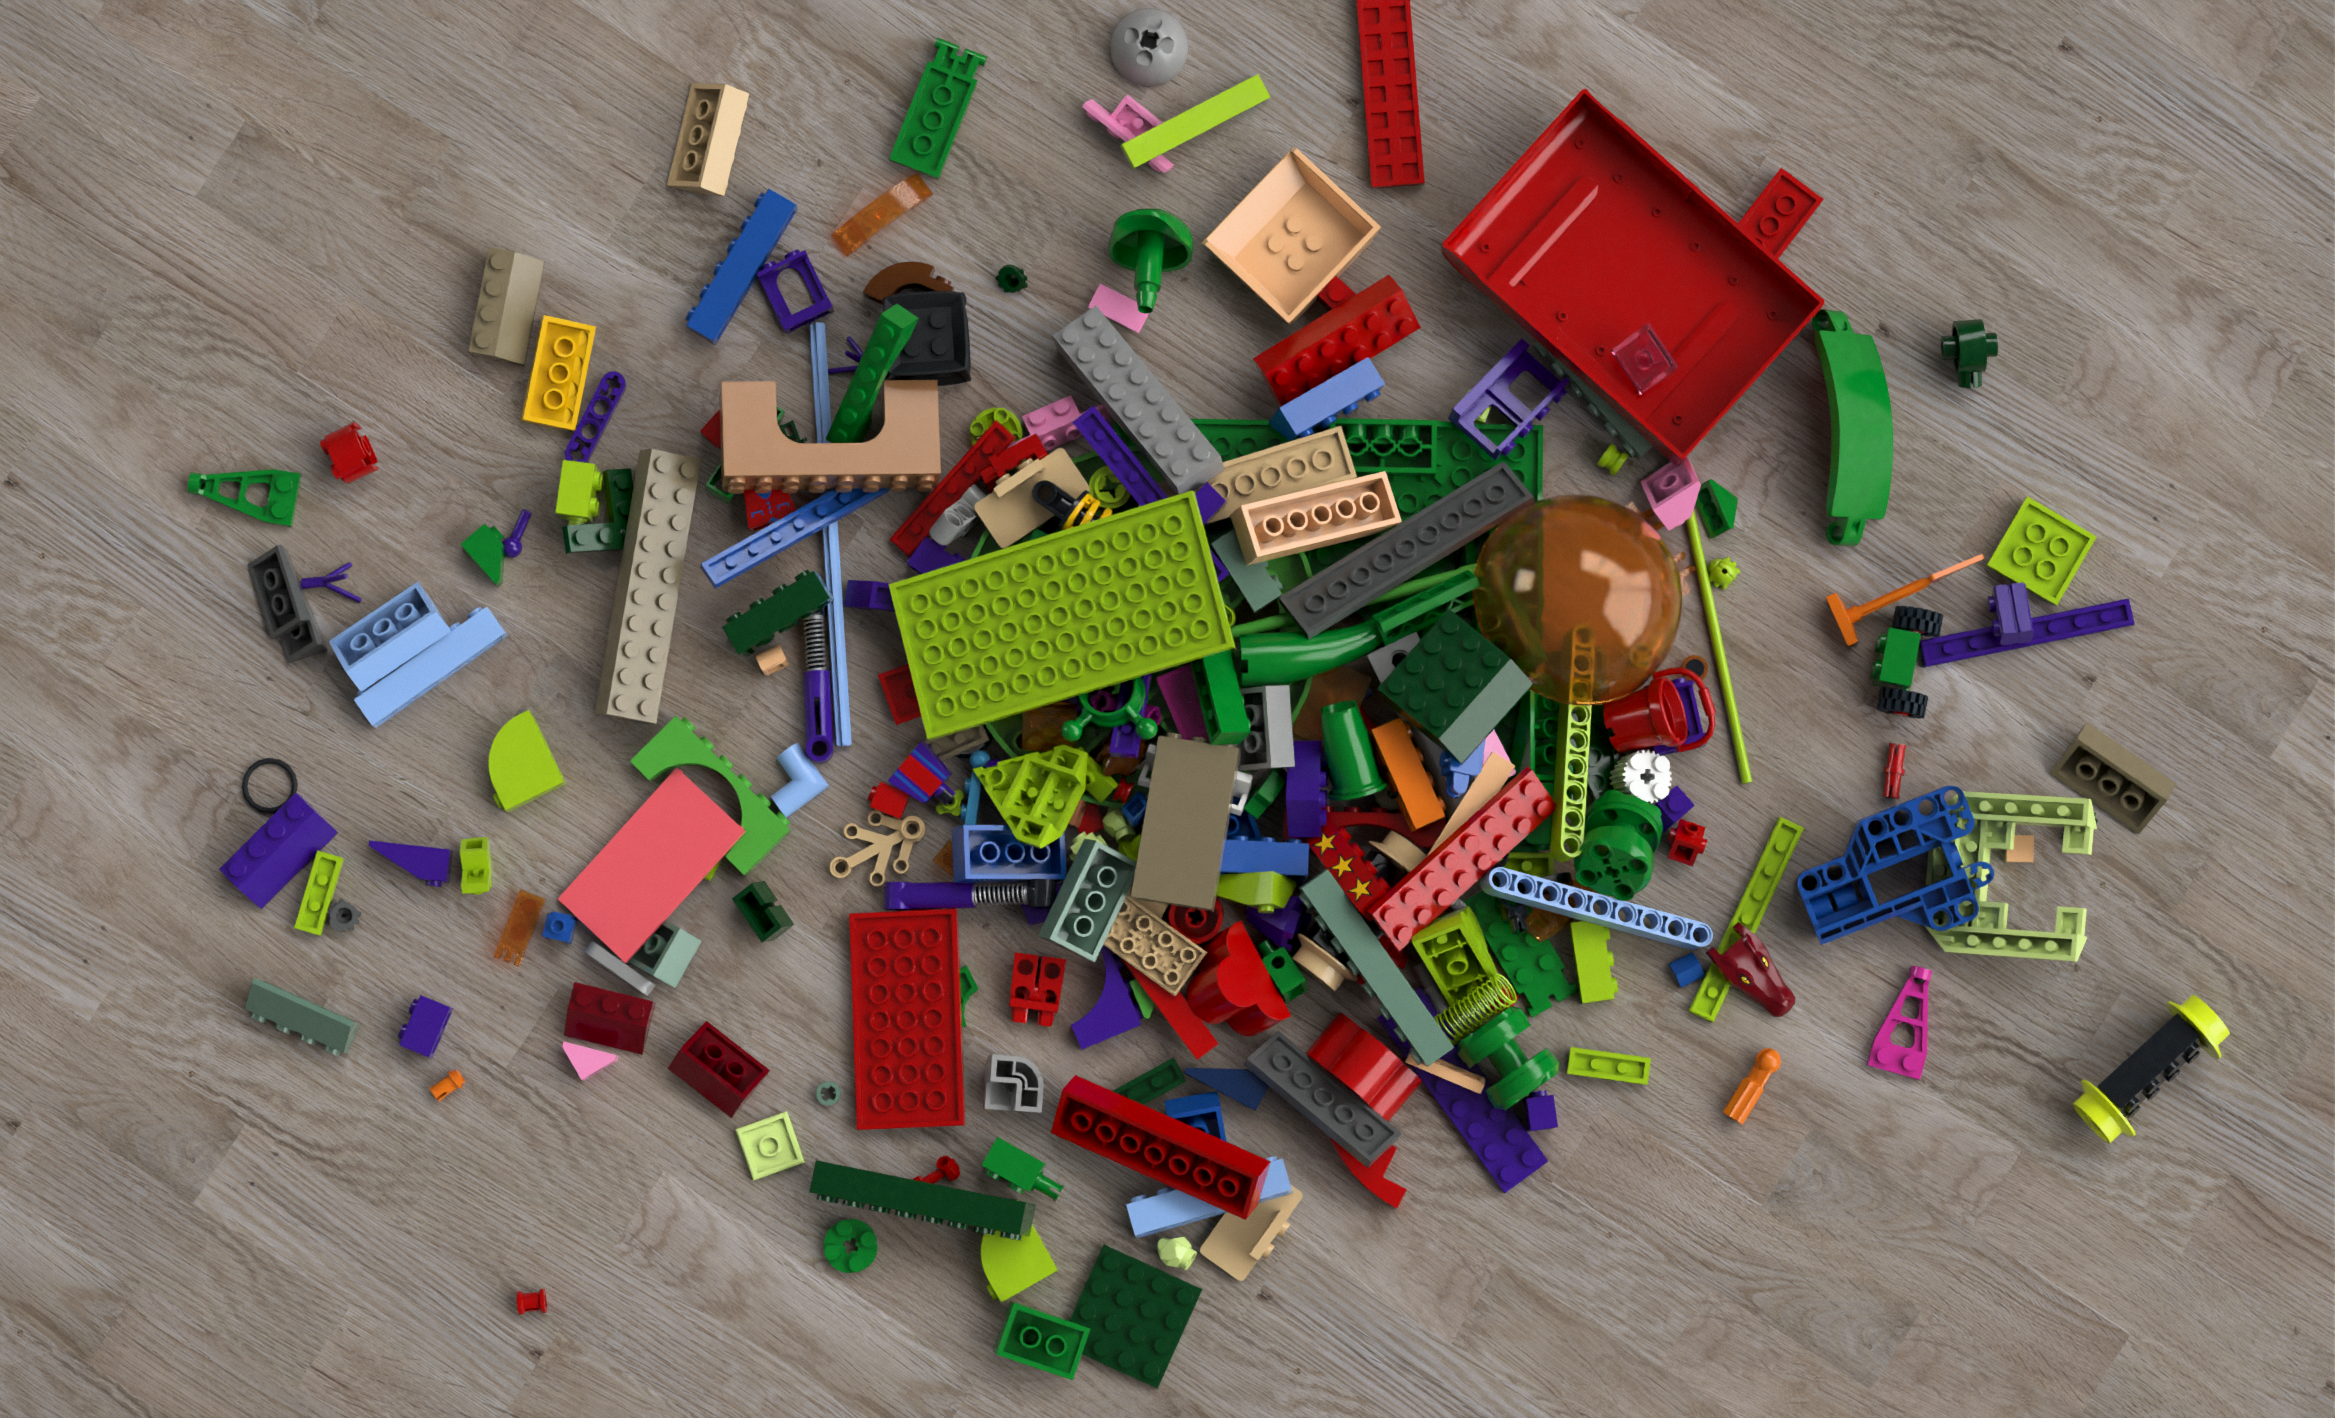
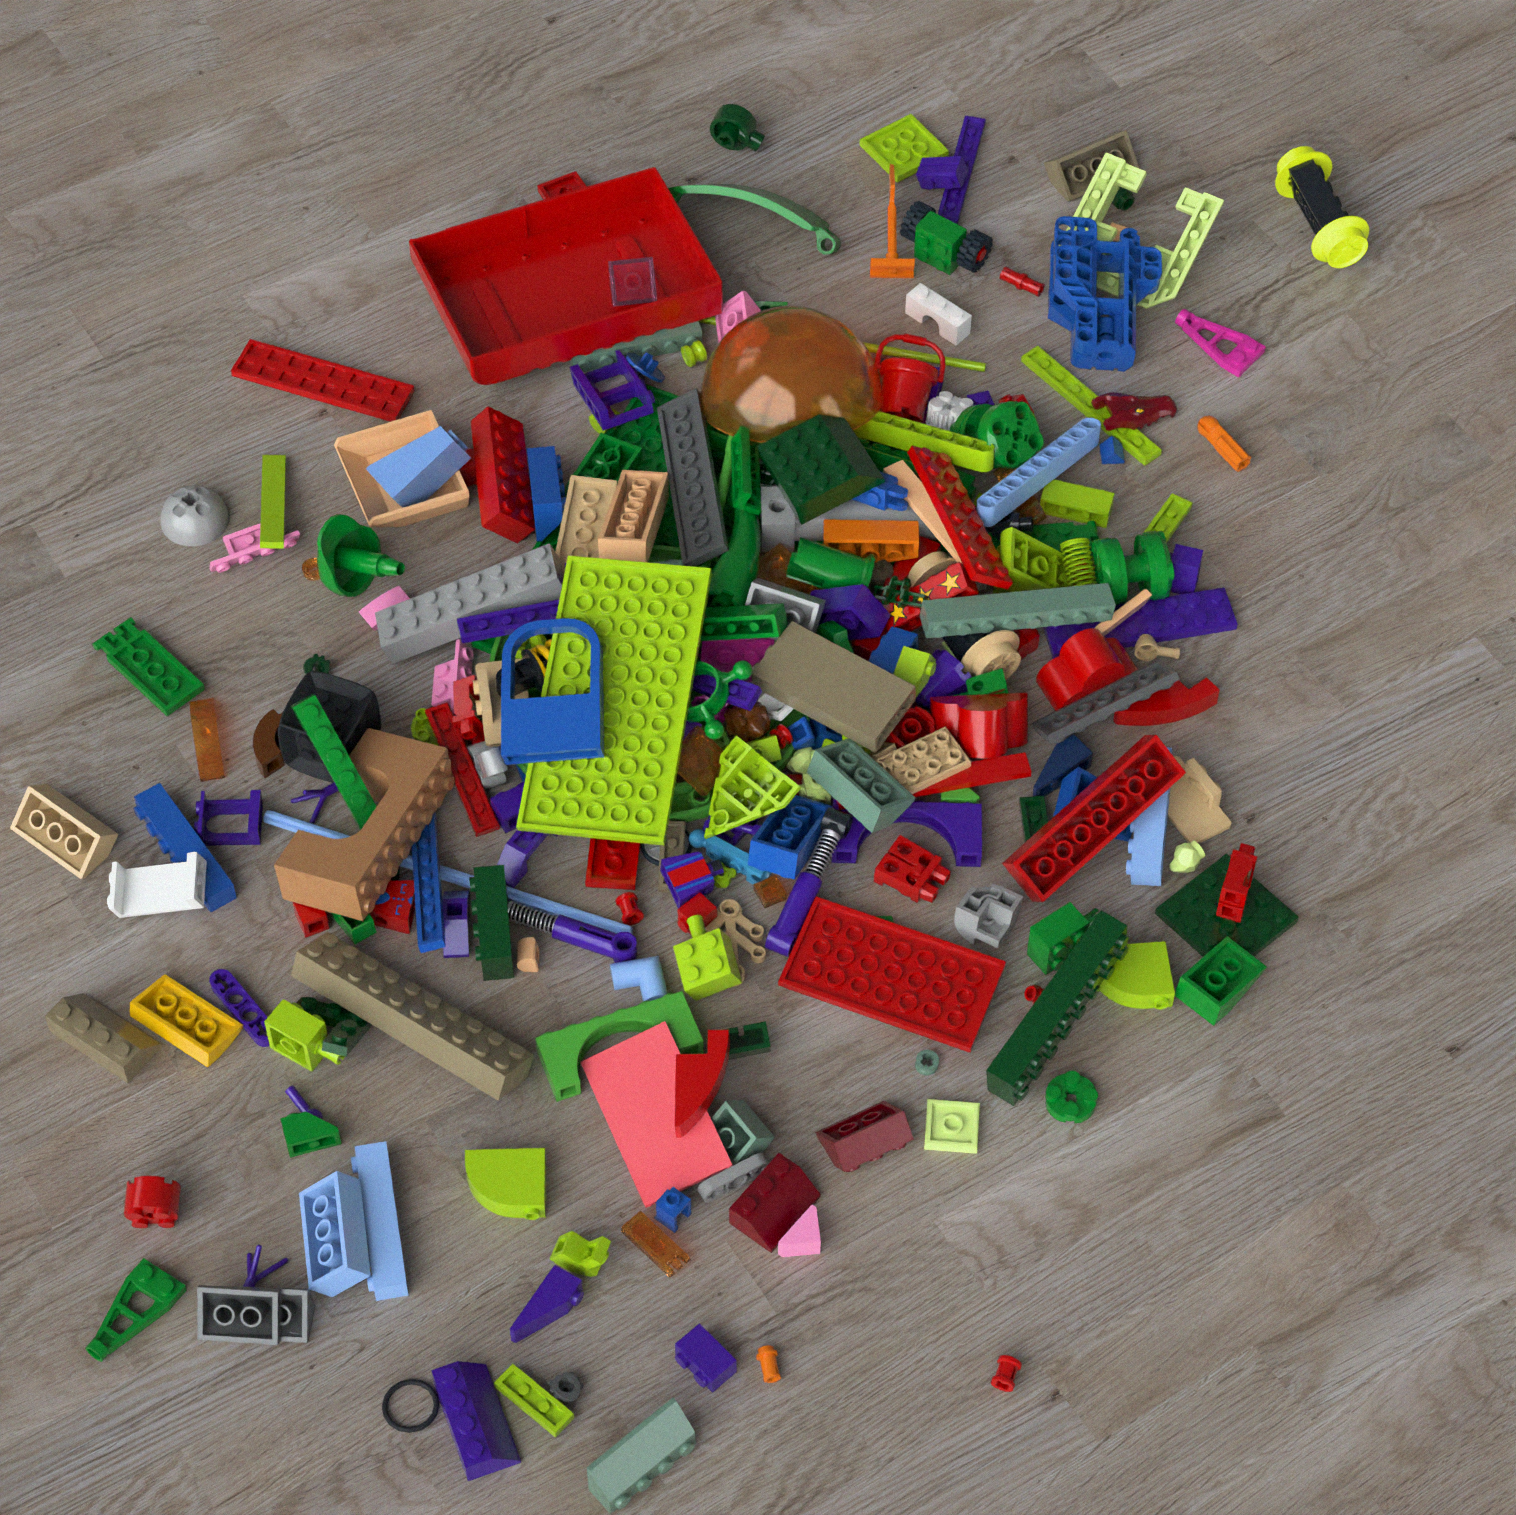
camera: 65 degrees left, 30 degrees down
(679, 269) = (158, 887): none -> white panel
(688, 894) = (699, 1080): none -> red slope
(776, 571) = (456, 923): none -> dark purple slope
(832, 837) = (706, 961): none -> lime brick
(868, 731) = (629, 908): none -> red bush
(996, 570) = (552, 725): none -> blue window
(1143, 200) = (310, 564): none -> clear orange bush
(1153, 1315) = (1237, 883): none -> red hips
(1278, 257) = (420, 467): none -> medium blue slope
(1341, 843) = (904, 593): none -> dark green piece
(1429, 1111) = (1147, 649): none -> tan bar
(1563, 418) = (646, 366): none -> blue piece
(1795, 700) = (952, 321): none -> white arch

